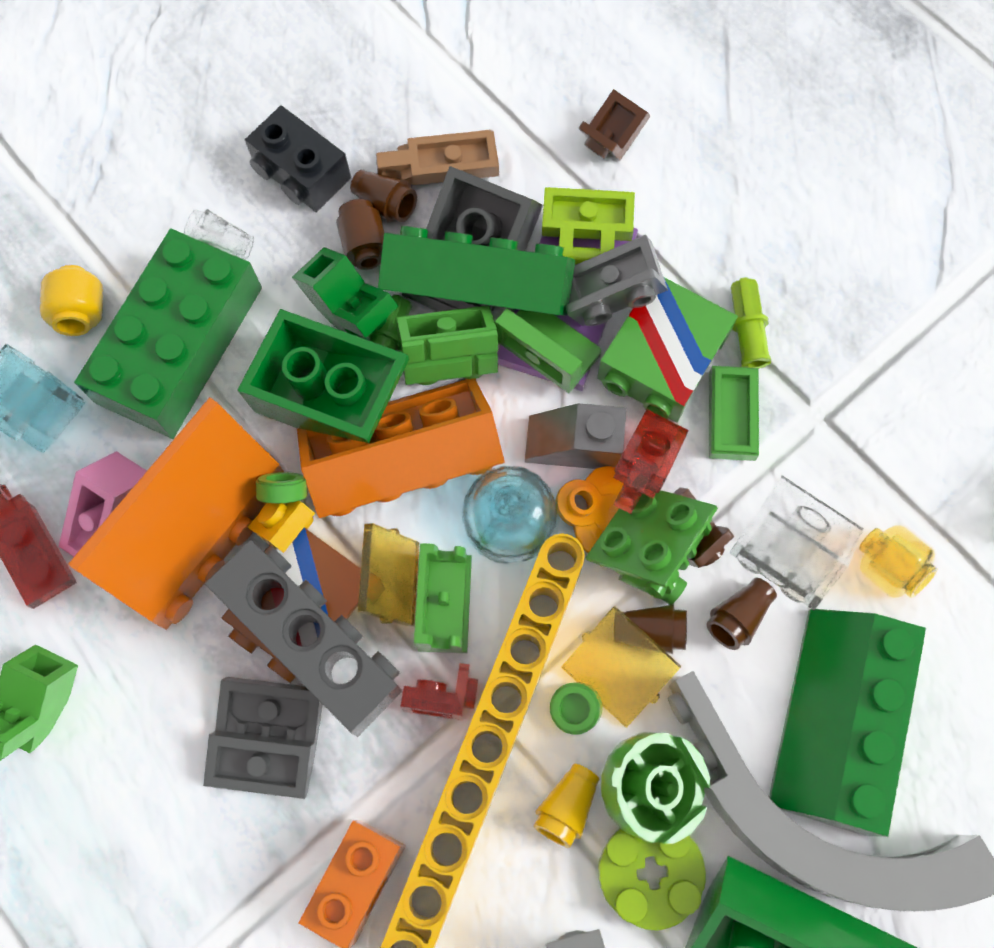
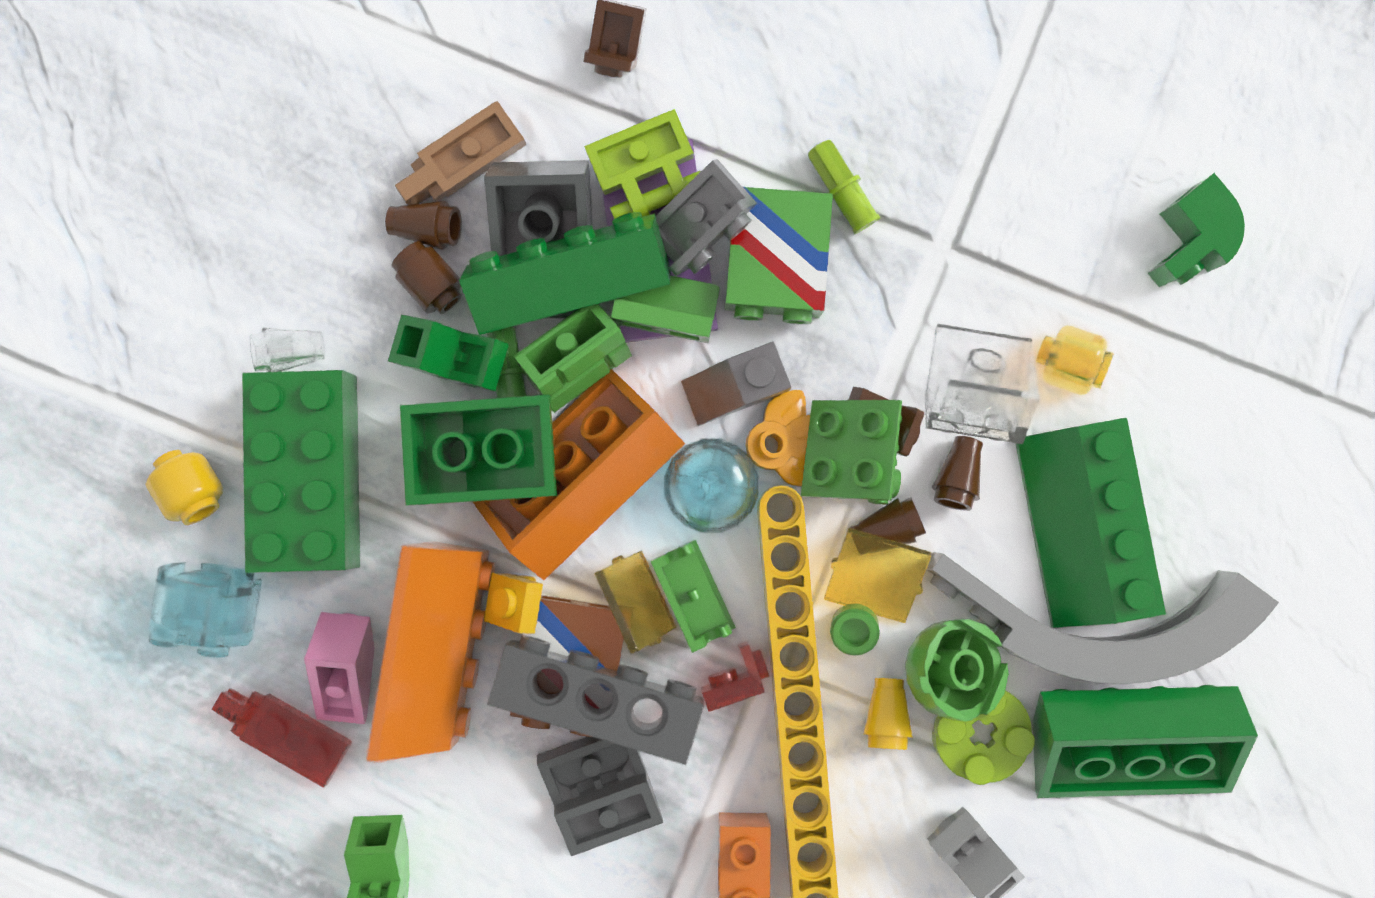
camera: 30 degrees left, 15 degrees up
(281, 487) = (499, 577): bright green tile -> none
(297, 159) = (317, 227): black brick -> none
(647, 459) = (814, 377): clear red hinge -> none
(734, 413) = (867, 284): bright green tile -> none

